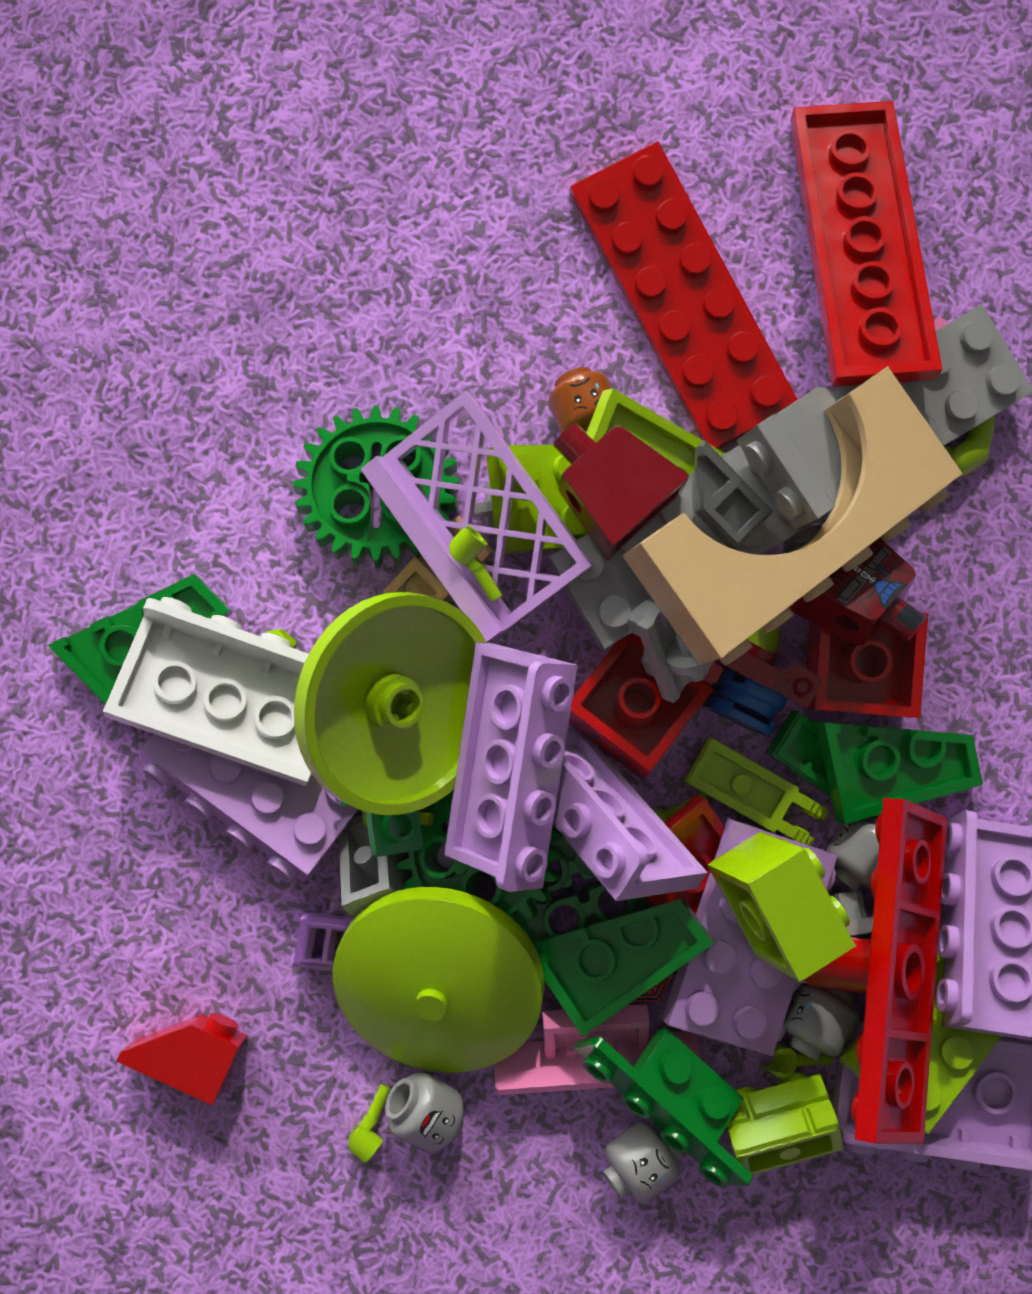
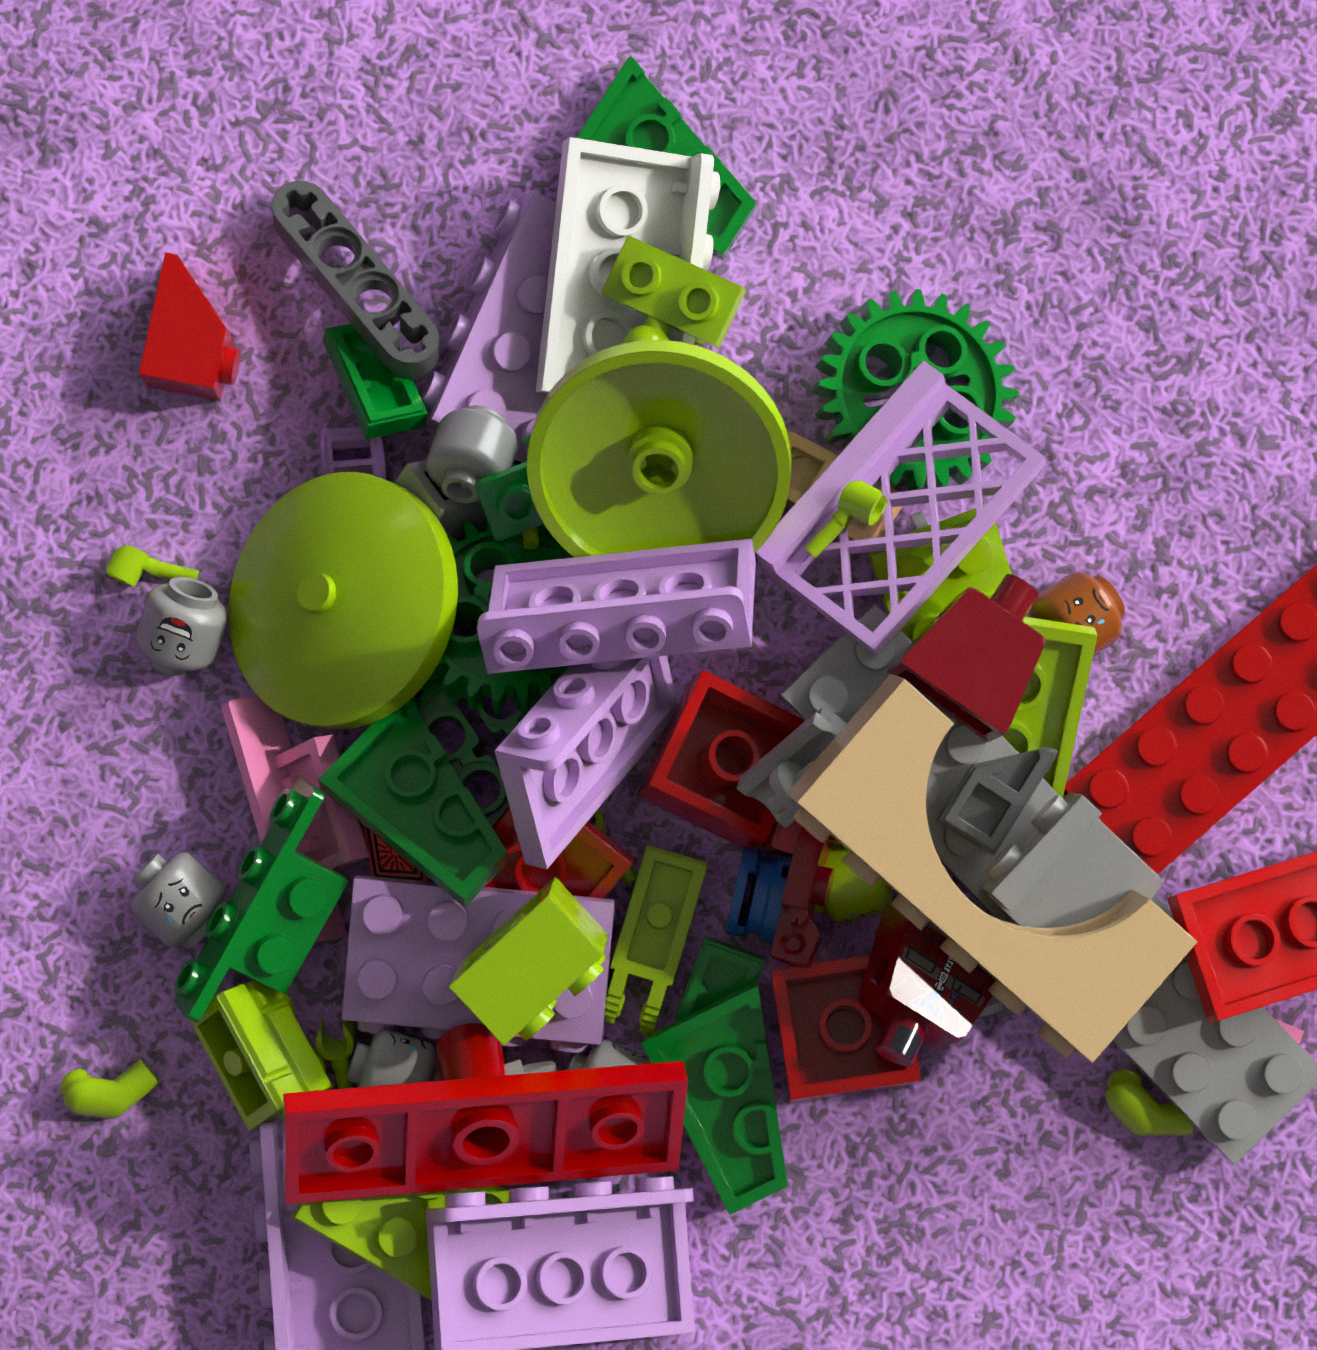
camera: 85 degrees right, 5 degrees down
(177, 913) = (348, 282): none -> dark grey beam
(255, 659) = (671, 295): none -> lime plate
(261, 911) = (377, 396): none -> green plate
(342, 852) = (468, 448): none -> light grey head
(780, 1263) = (105, 1097): none -> lime arm

